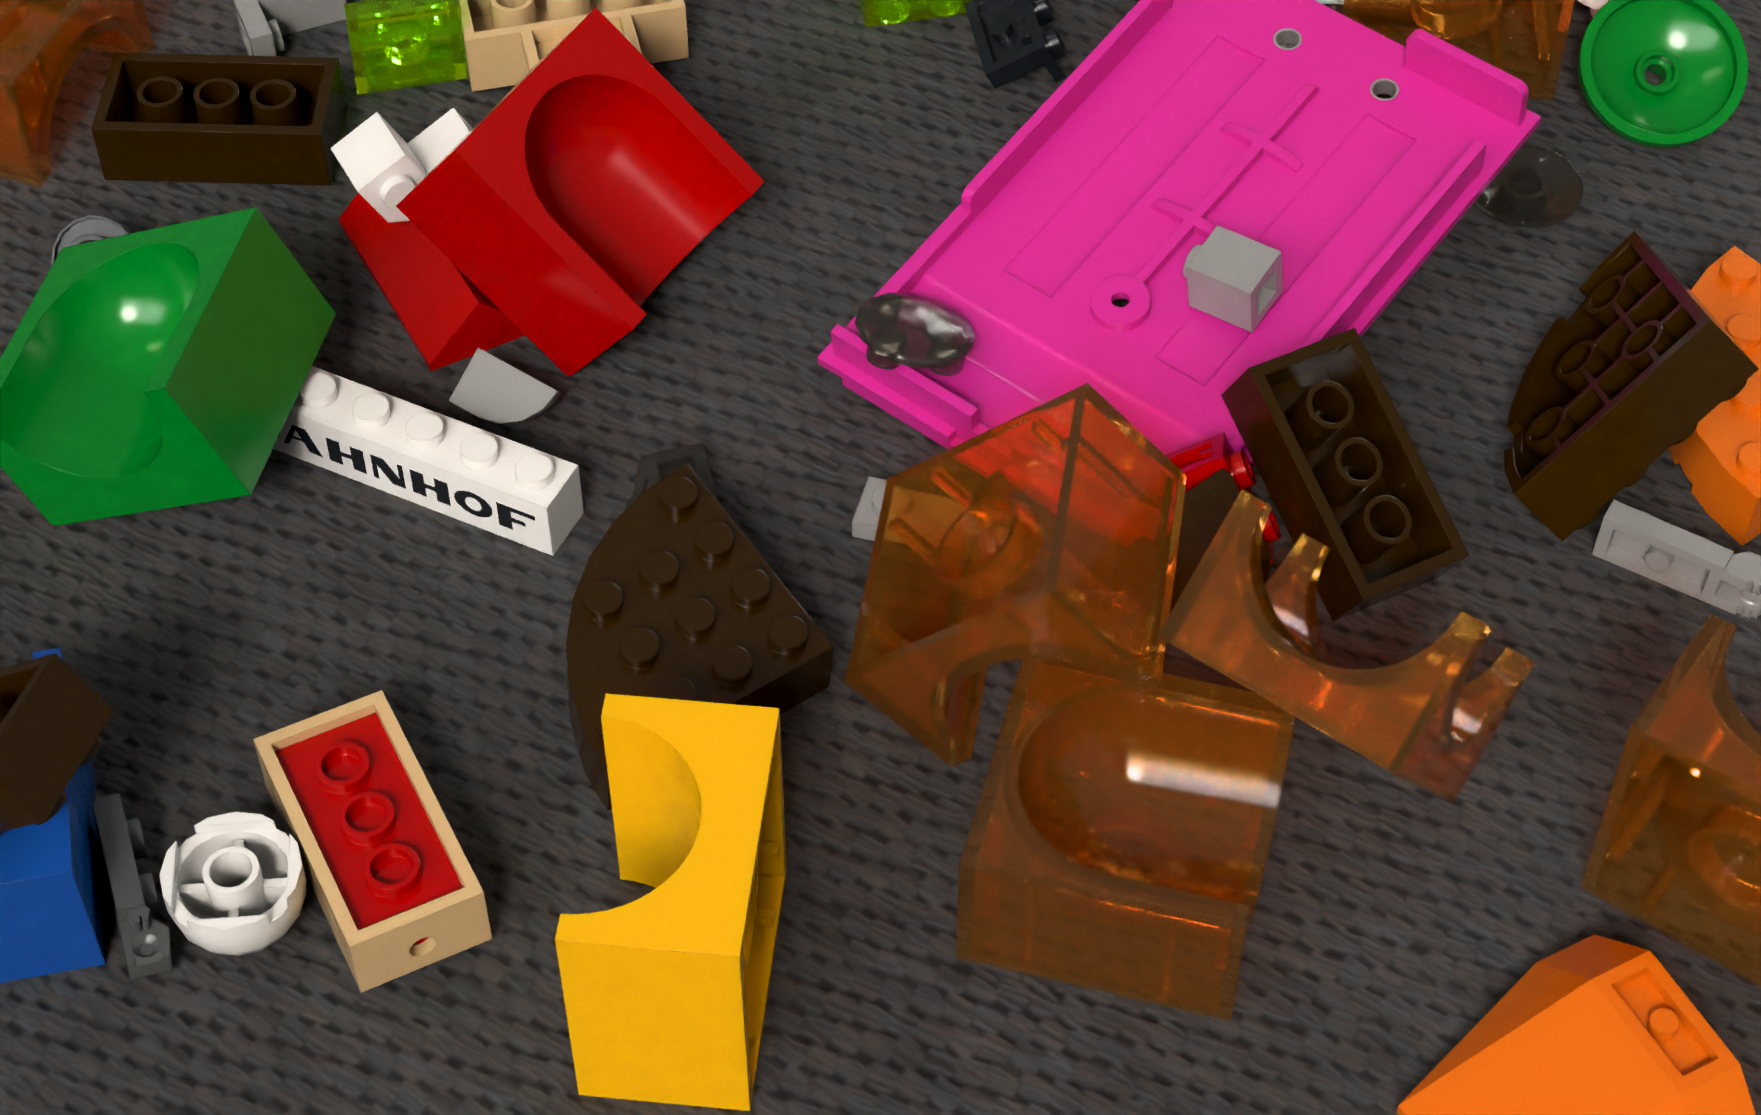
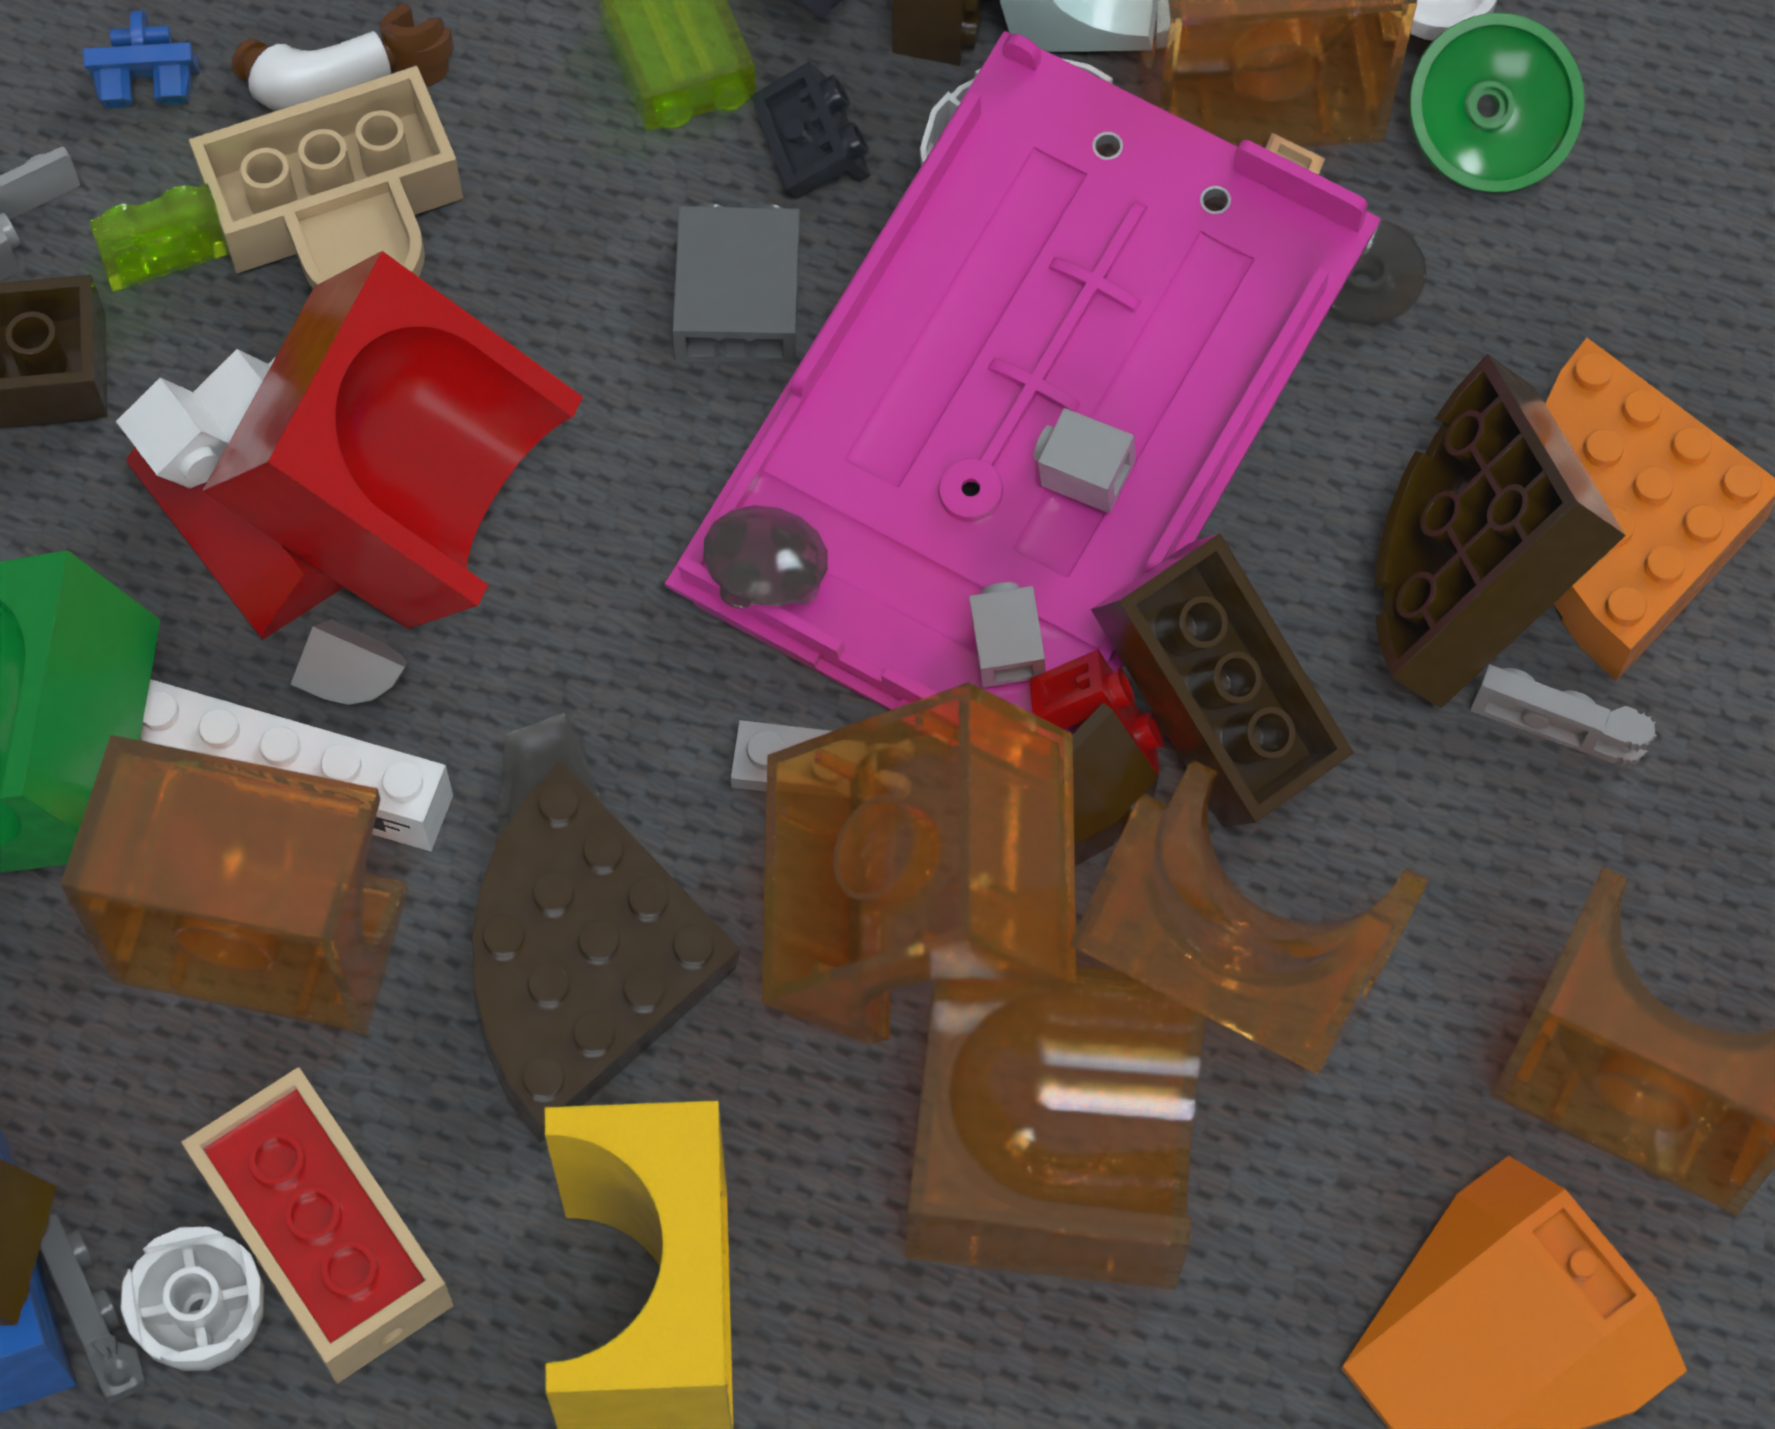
camera: 10 degrees left, 15 degrees up
(347, 520) = (234, 884): none -> clear orange piece
(925, 137) = (736, 284): none -> dark grey brick
(1143, 400) = (1007, 634): none -> light grey brick

